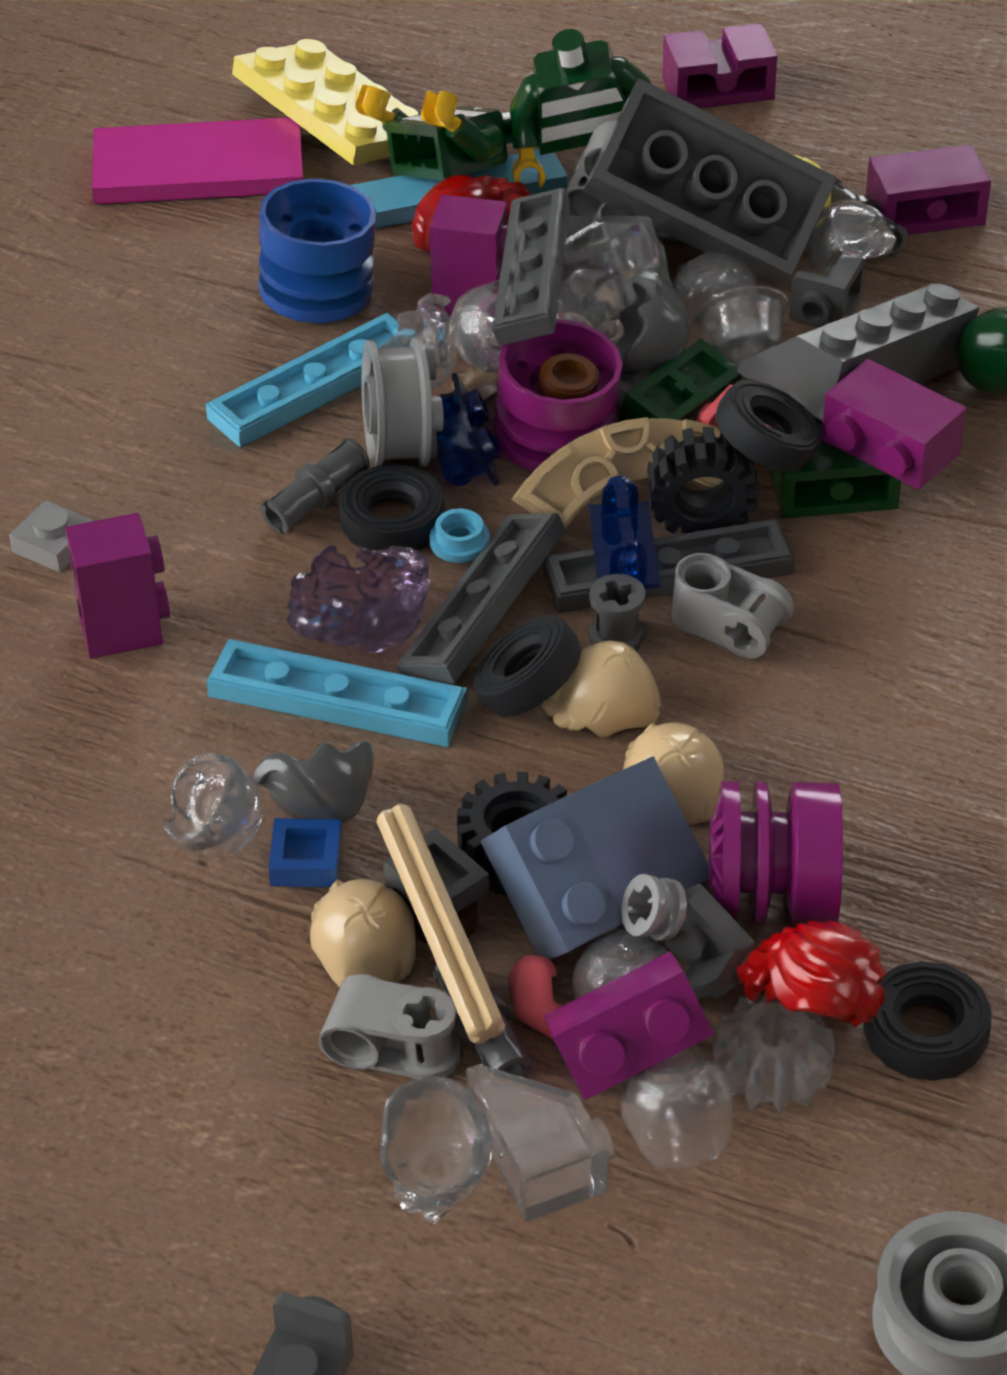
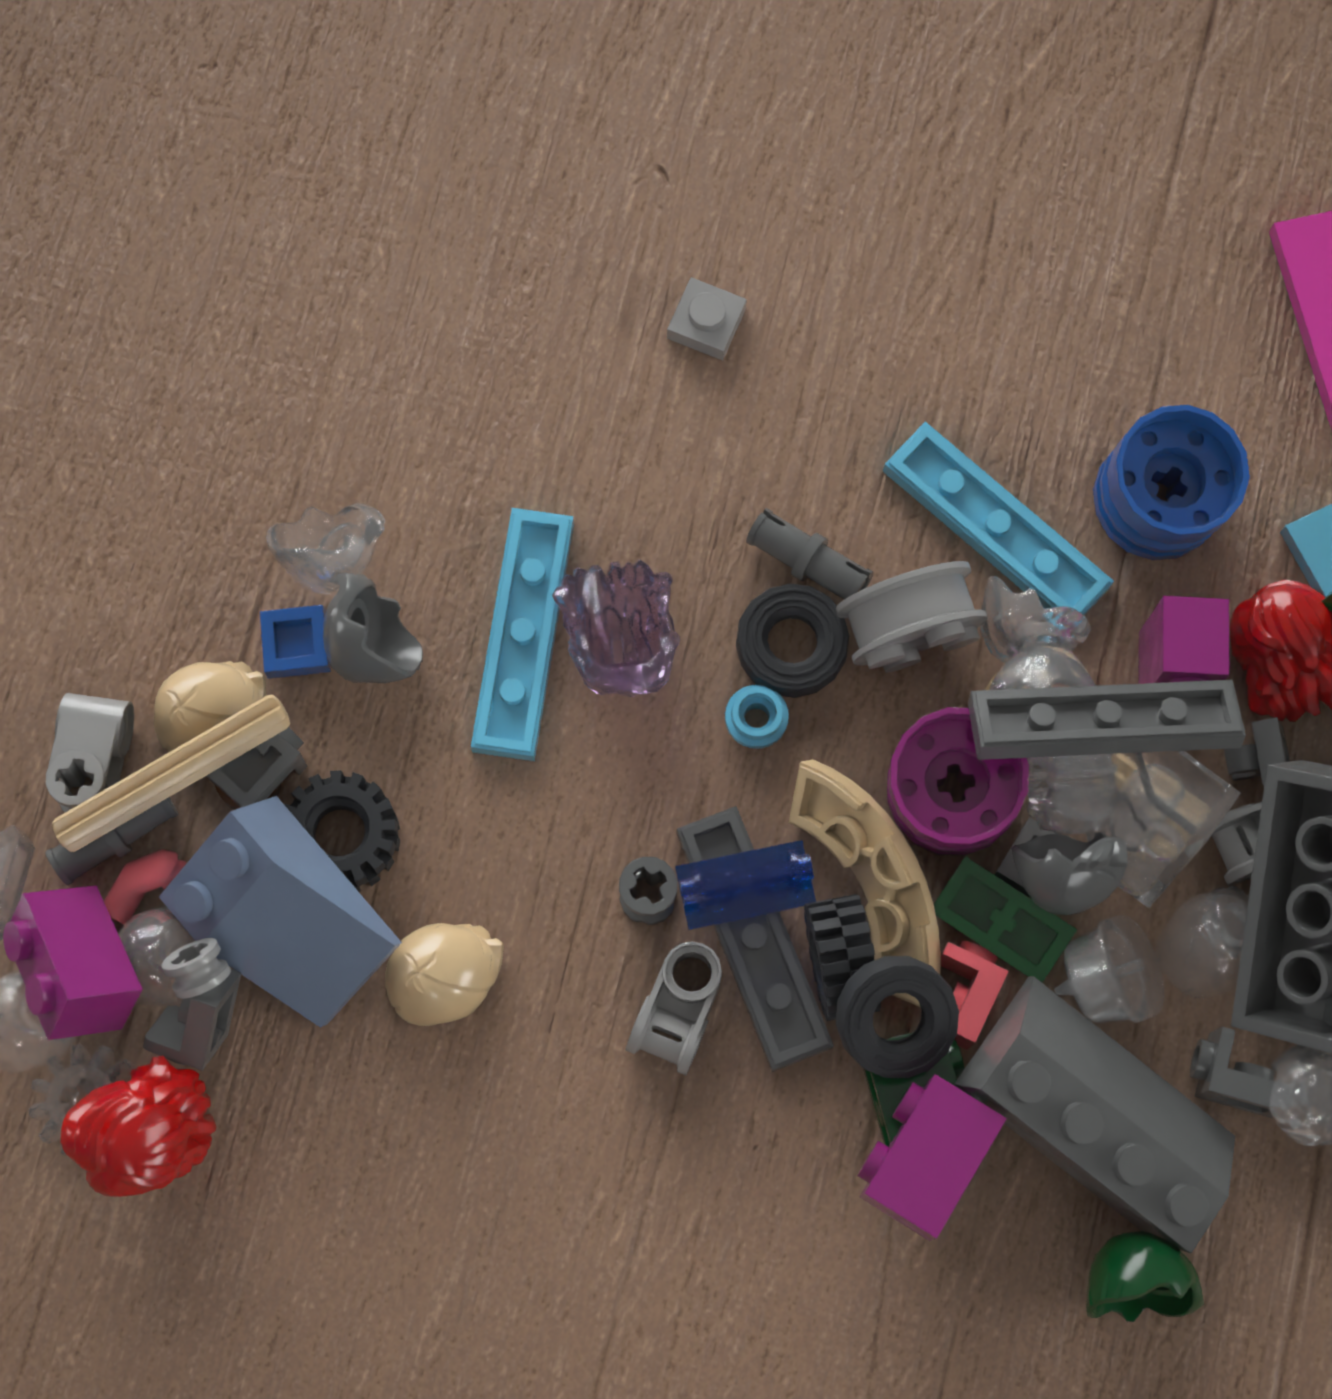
camera: 80 degrees right, 30 degrees up
(117, 584) = (592, 391): magenta brick -> none
(465, 444) = (892, 707): clear blue hinge -> none
(481, 597) = (666, 752): dark grey tile -> none
(527, 665) = (549, 836): black tyre -> none
(568, 377) = (949, 789): reddish brown tile -> none
(606, 692) = (544, 893): tan hair -> none
(779, 851) = (297, 1081): magenta wheel -> none
(930, 1056) = (176, 1278): black tyre -> none

